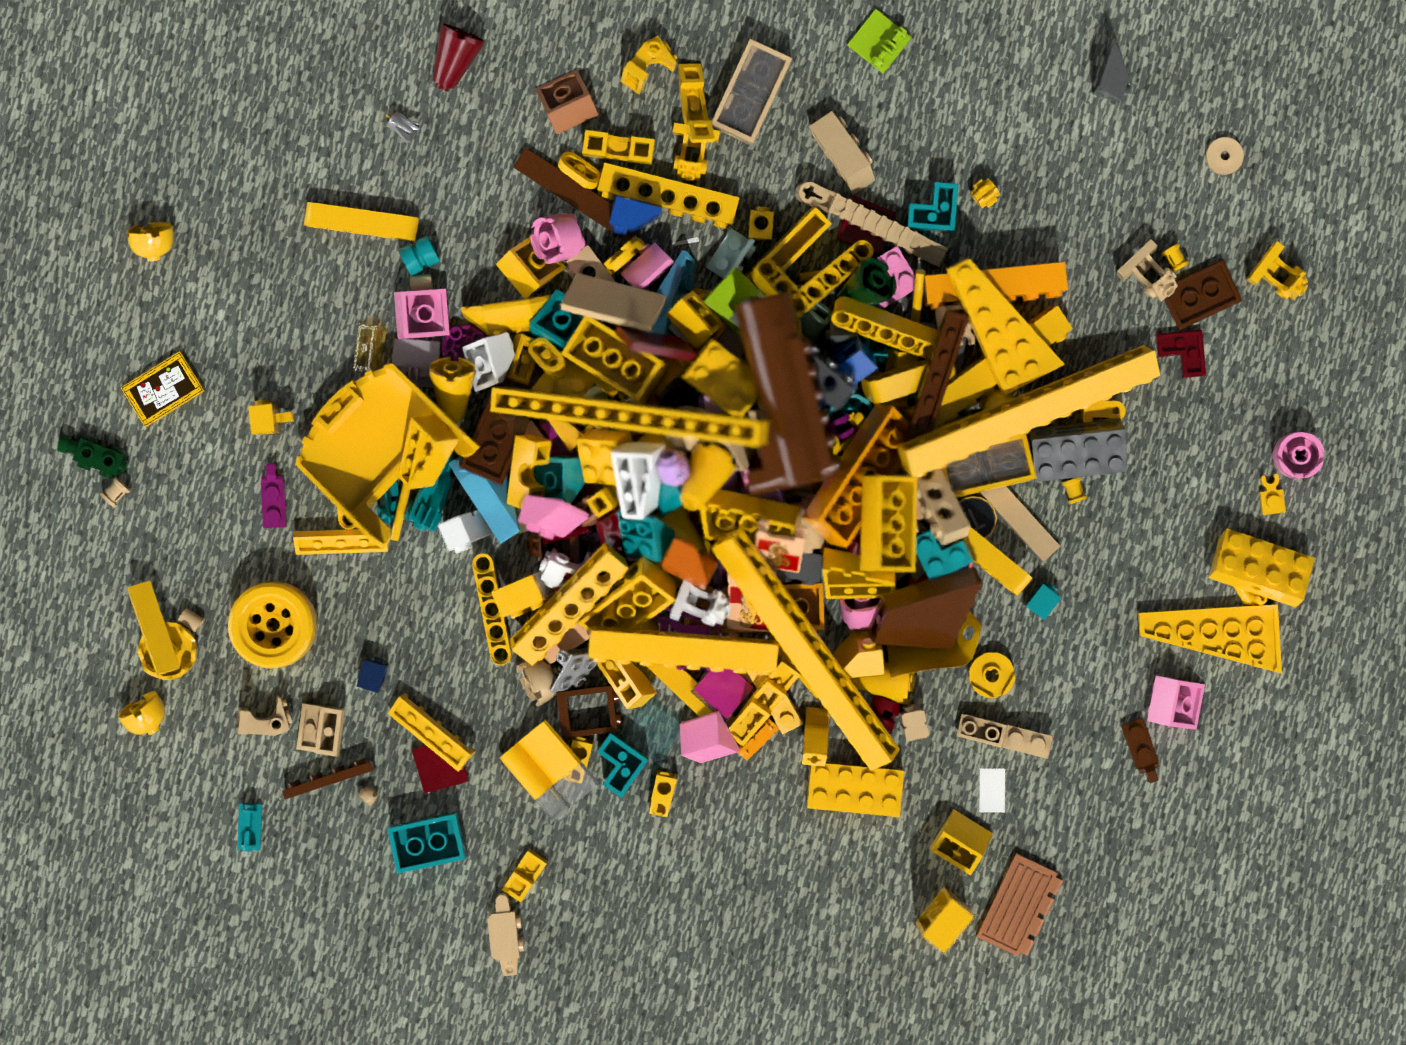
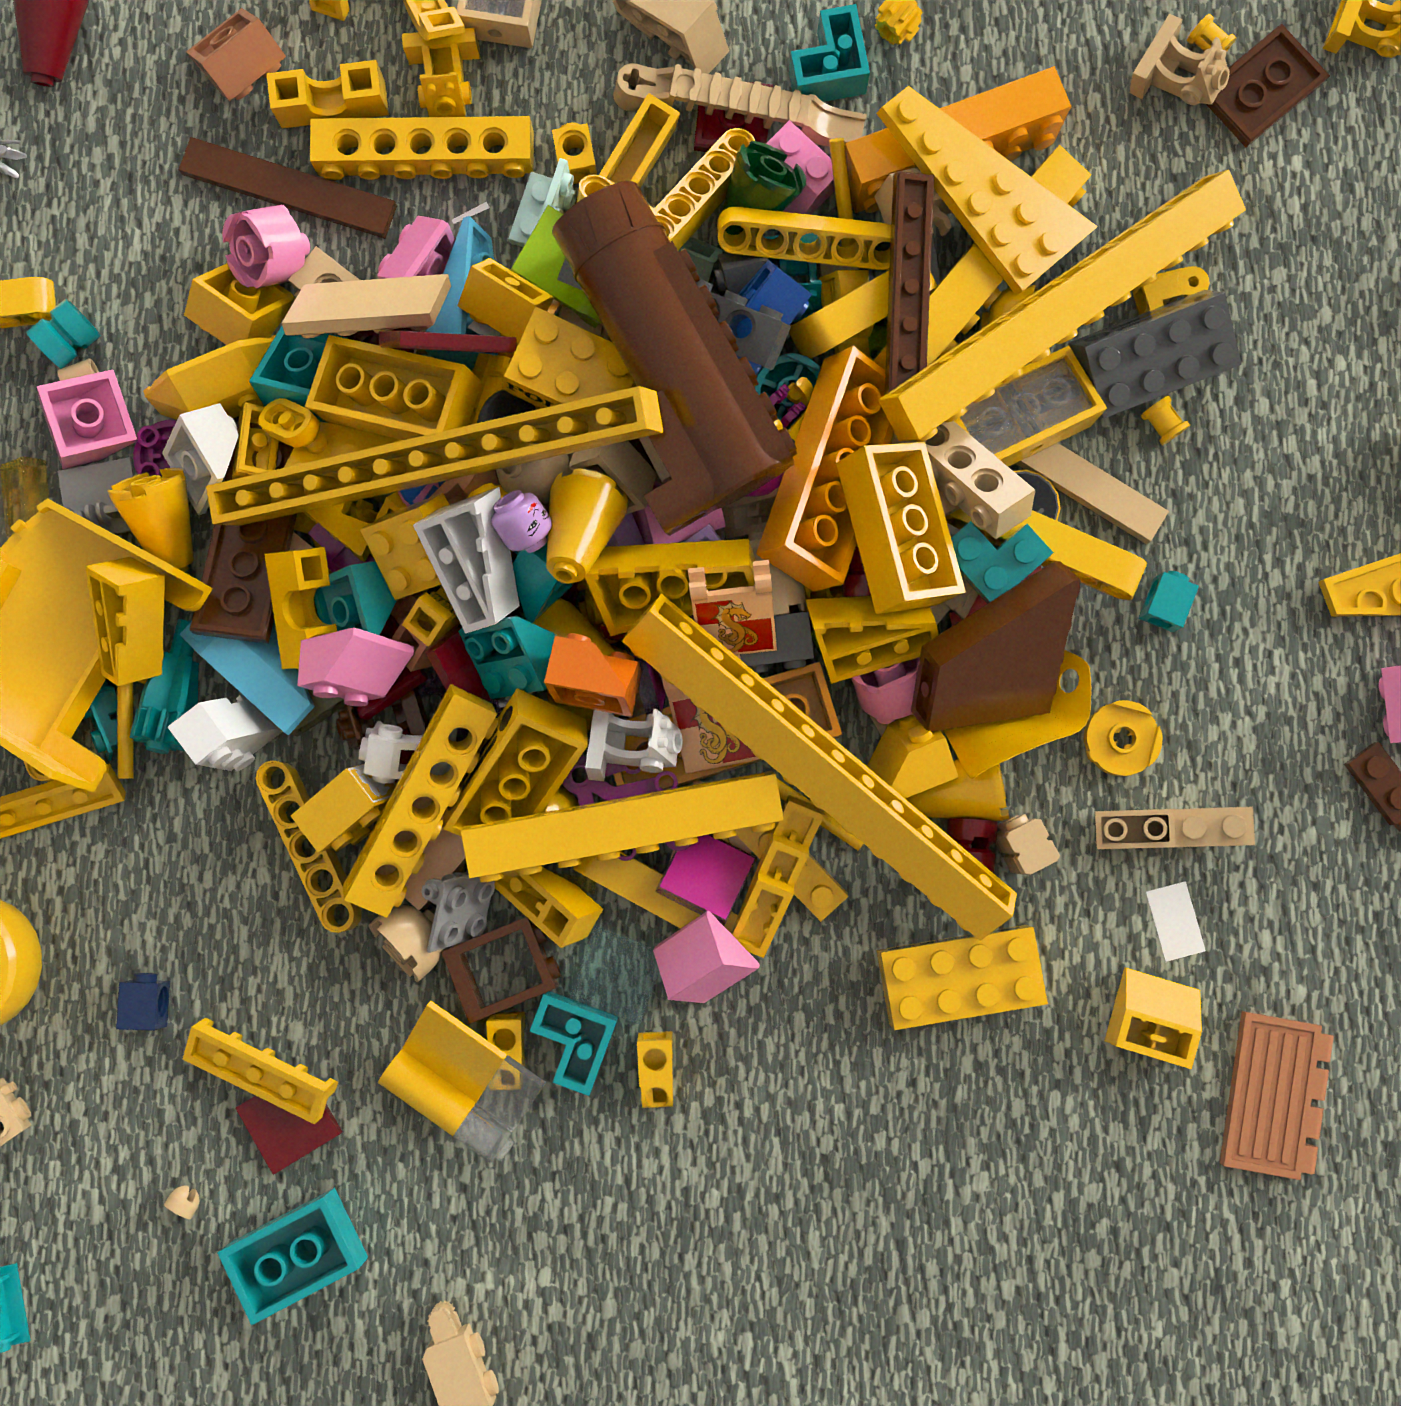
camera: 10 degrees left, 5 degrees down
(320, 729) = (79, 1115): tan brick -> none
(337, 774) = (97, 1199): reddish brown plate -> none
(525, 875) = (469, 1264): yellow slope -> none
(579, 170) = (278, 146): yellow plate -> none
(629, 250) = (379, 240): yellow plate -> none
(631, 215) = (372, 178): blue slope -> none
(761, 736) = (785, 939): light orange hinge -> none
(815, 737) = (876, 911): yellow piece -> none
(944, 920) = (1177, 1158): yellow brick -> none
(1189, 347) = (1271, 166): dark red tile -> none

